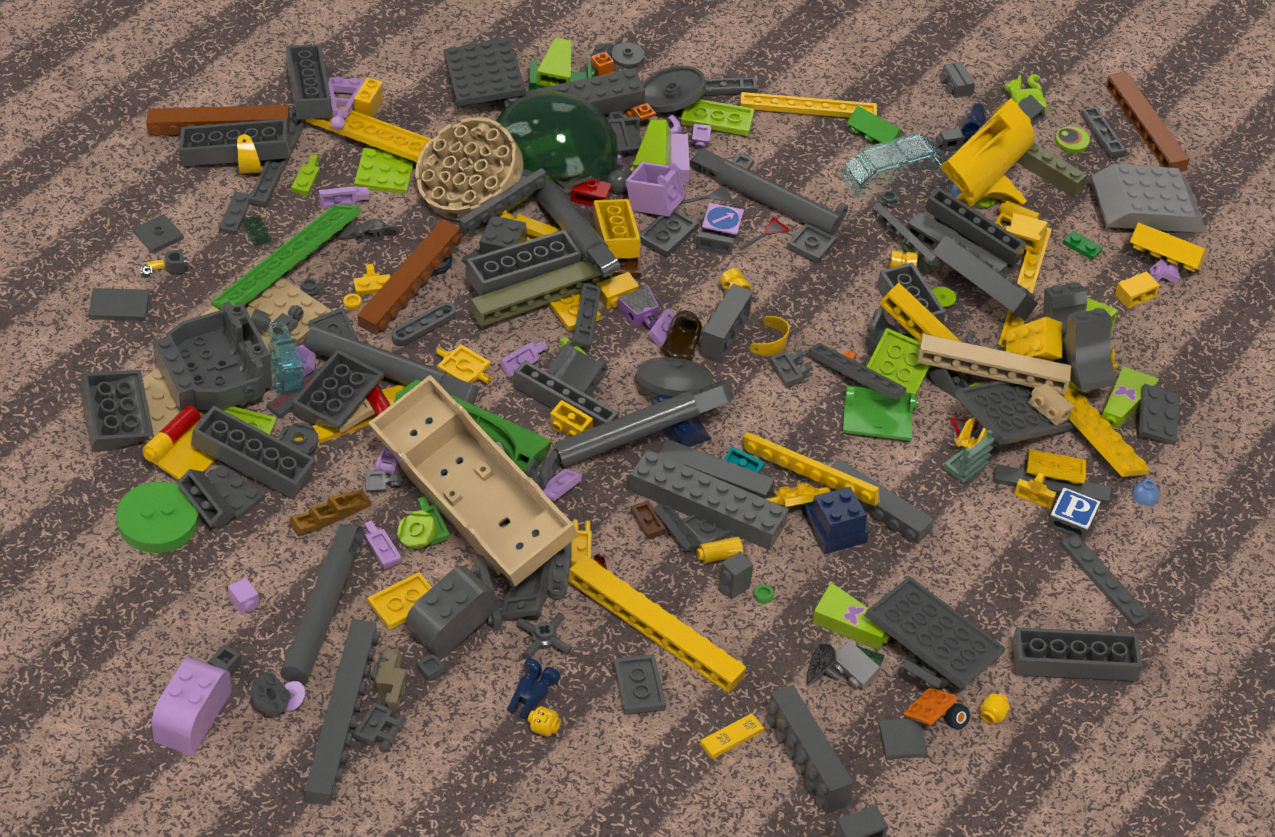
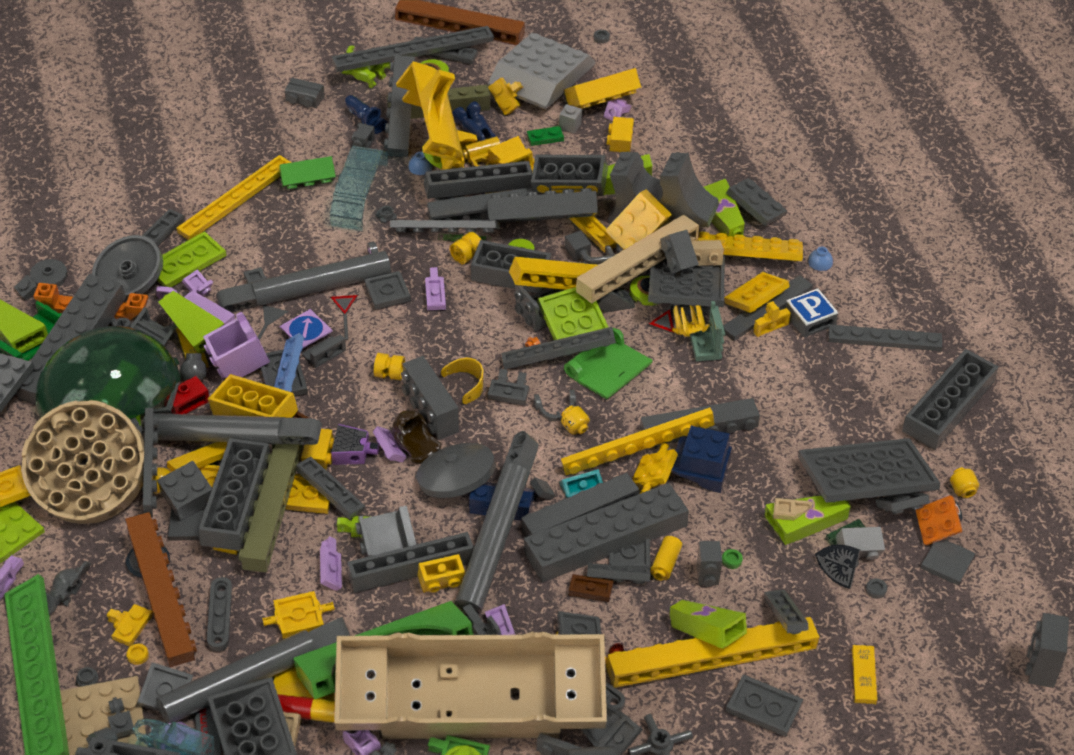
camera: 50 degrees left, 0 degrees up
(599, 532) = (576, 624): none -> dark grey tile
(673, 602) = (708, 622): none -> lime slope
(677, 226) = (289, 362): none -> medium blue plate
(712, 440) = (542, 488): none -> dark grey tile
(733, 646) = (786, 611): none -> dark grey plate
(797, 422) = (575, 420): none -> yellow head
(809, 750) = (927, 627): dark grey brick -> none
(820, 411) = (551, 417): none -> dark grey piece
(826, 703) = (876, 588): none -> dark grey tile
(839, 599) = (790, 509): none -> tan tile
(841, 270) = (435, 291): none -> lavender hinge
(983, 327) = (576, 243): none -> dark grey brick
(1024, 382) = (679, 251): none -> dark grey brick
(1035, 270) = (569, 173): none -> dark grey brick
(1043, 199) = (473, 121): none -> dark blue piece
(1074, 110) = (412, 48): none -> dark grey plate
(1091, 192) = (505, 94): none -> yellow hinge
(1115, 248) = (570, 118): none -> light grey brick
(1240, 218) = (601, 36): none -> dark grey tile

